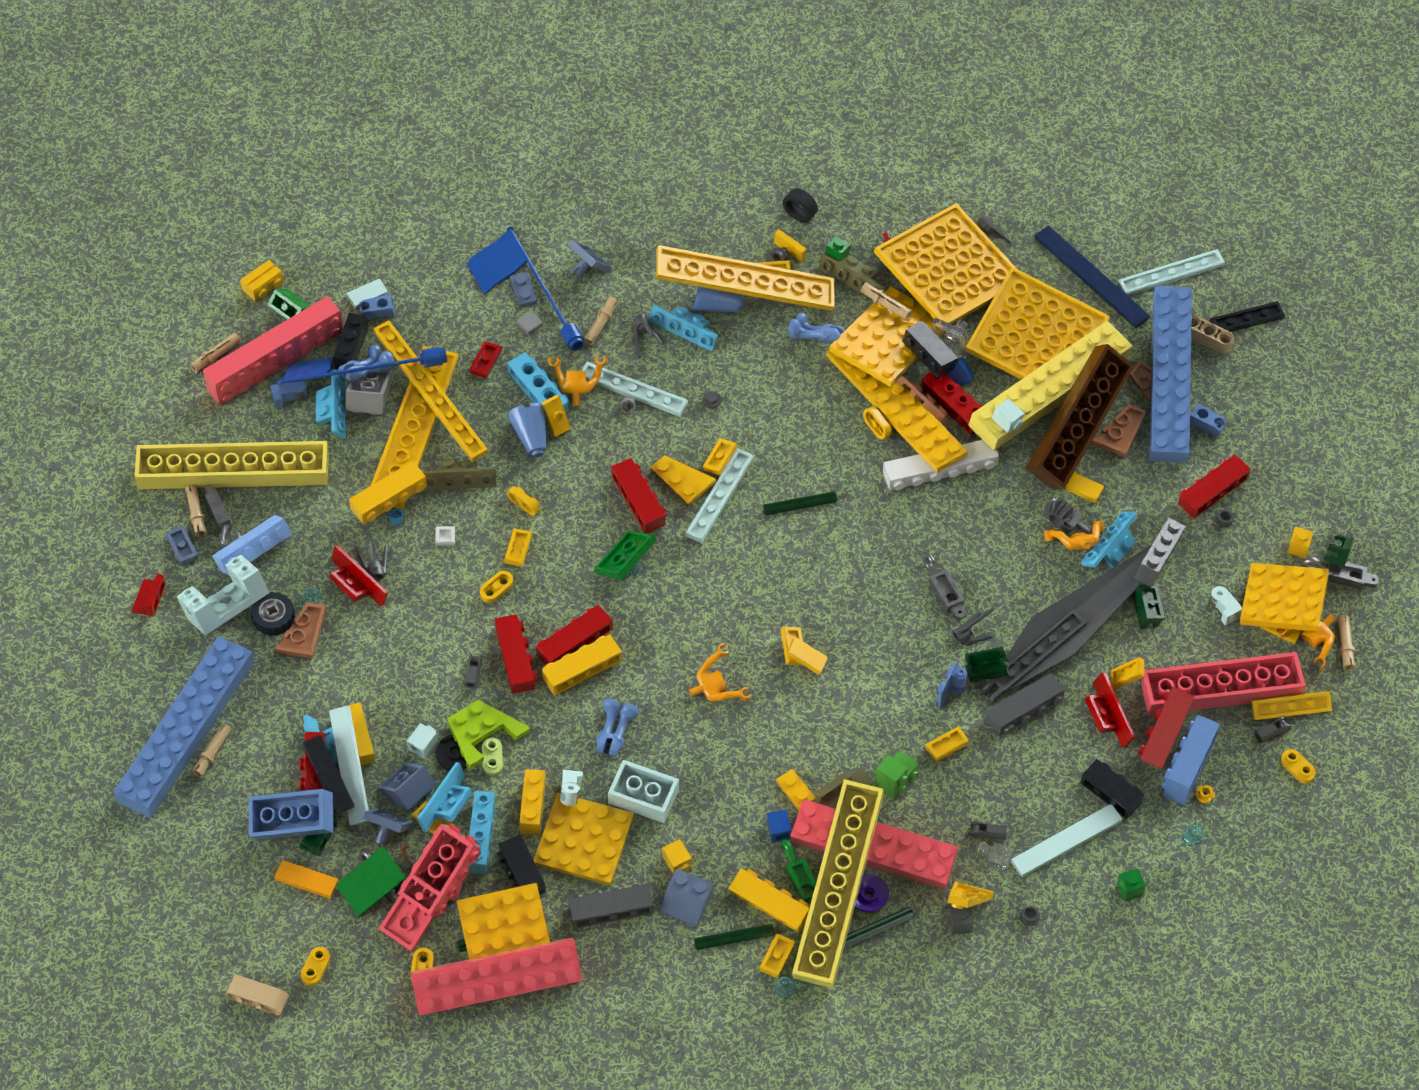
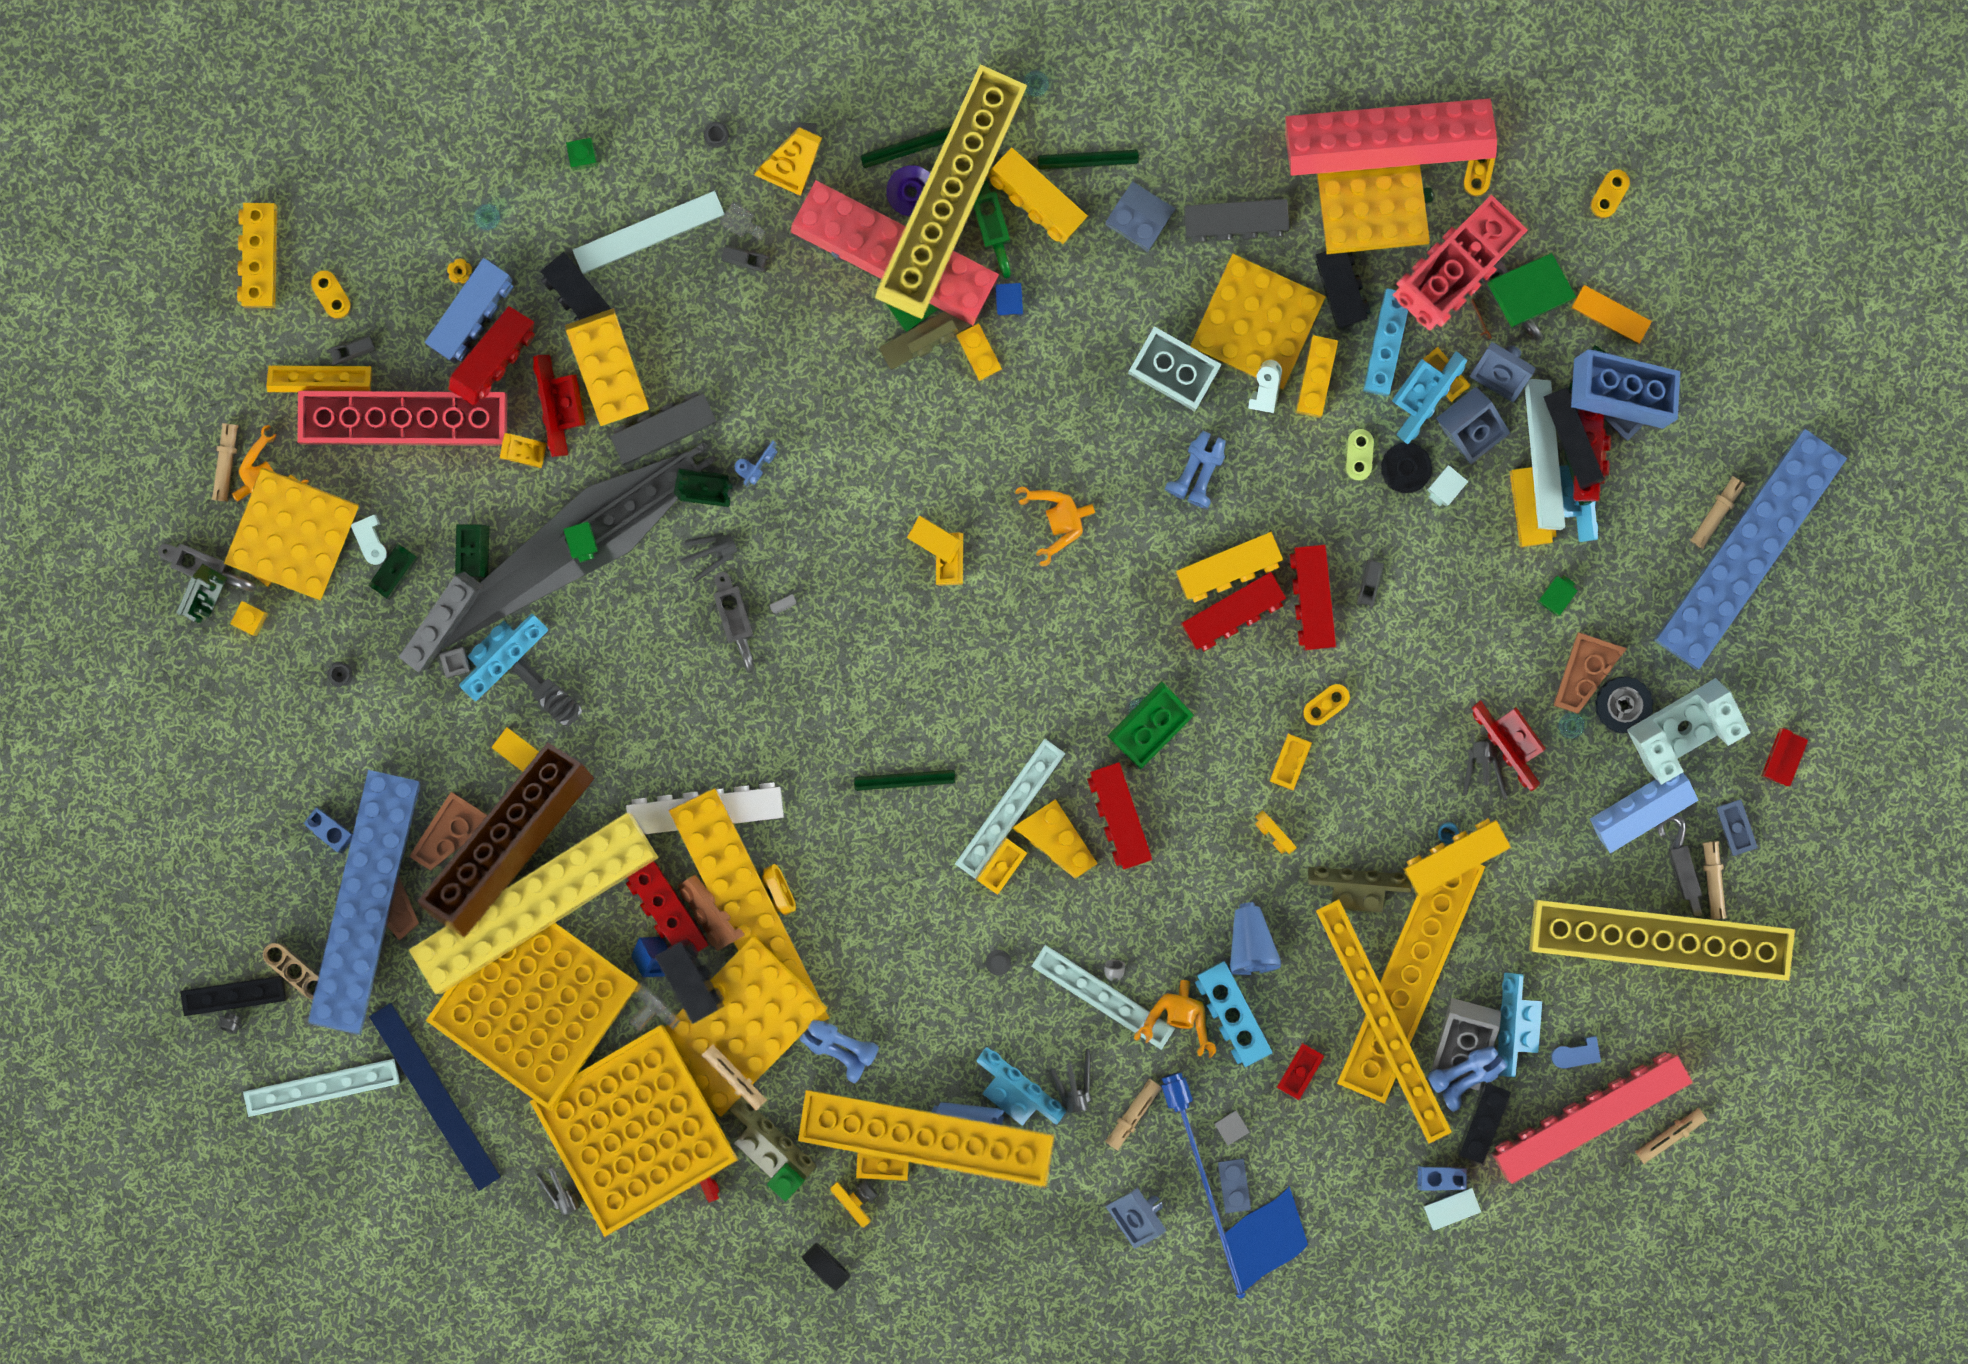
camera: 175 degrees left, 30 degrees up
(257, 994) = (1686, 161): tan beam -> none
(262, 281) = (1597, 1247): yellow brick -> none
(286, 303) = (1562, 1193): green brick -> none
(320, 367) = (1543, 1078): blue flag -> none
(330, 678) = (1558, 595): none -> green brick
(445, 536) = (1385, 796): white tile -> none
(477, 723) = (1376, 501): lime wing -> none
(555, 415) = (1216, 956): yellow plate -> none
(677, 856) = (1144, 273): yellow brick -> none
(777, 956) = (1039, 124): yellow plate -> none
(895, 774) = (848, 350): bright green brick -> none
(911, 600) = (783, 604): none -> light grey tile
(947, 744) = (774, 388): yellow plate -> none
(1008, 416) = (607, 836): light aqua brick -> none
(1070, 616) = (581, 541): none -> green brick
(1077, 734) = (607, 367): none -> yellow brick
(1078, 540) = (543, 660): light orange piece -> none
(1143, 537) = (455, 662): none -> light grey tile
(1203, 586) = (393, 571): none -> dark green hinge
(1214, 486) = (344, 723): red brick -> none
(1245, 300) = (229, 1023): none -> dark grey plate
(1360, 783) = (258, 255): none -> yellow brick

